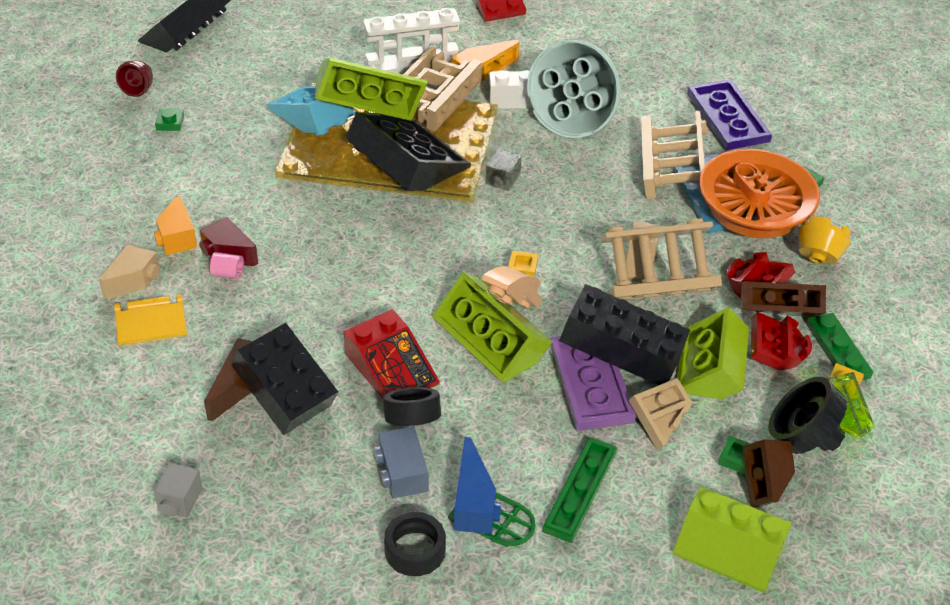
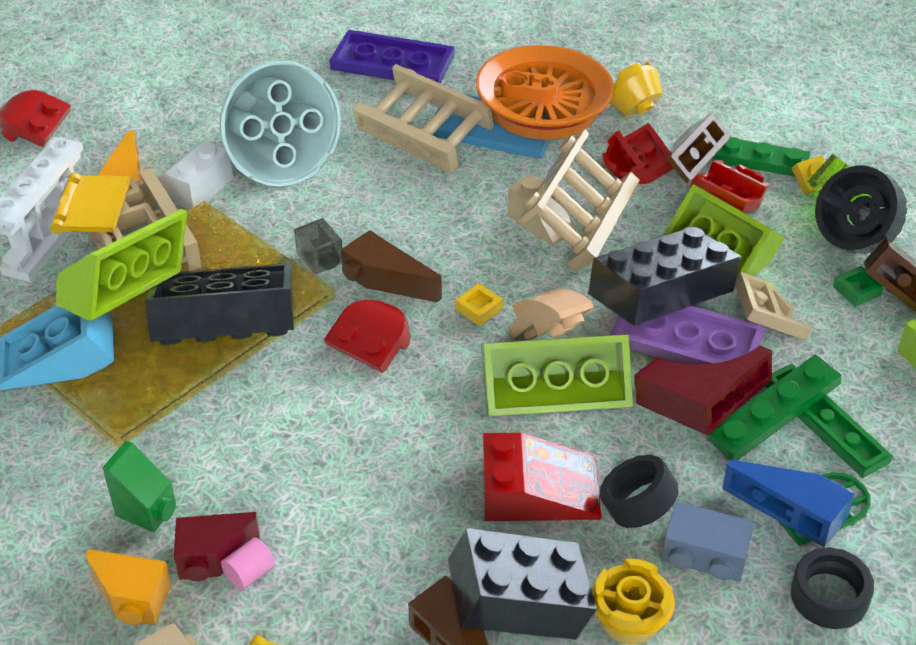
camera: 55 degrees left, 0 degrees up
(237, 191) = (138, 488): none -> green slope
(315, 439) = (633, 601): none -> yellow cone
(425, 55) = (90, 203): none -> yellow piece
(451, 228) = (370, 333): none -> red slope
(512, 202) = (388, 269): none -> reddish brown slope
(536, 408) = (702, 393): none -> dark red arch
(559, 452) = (774, 408): none -> green plate

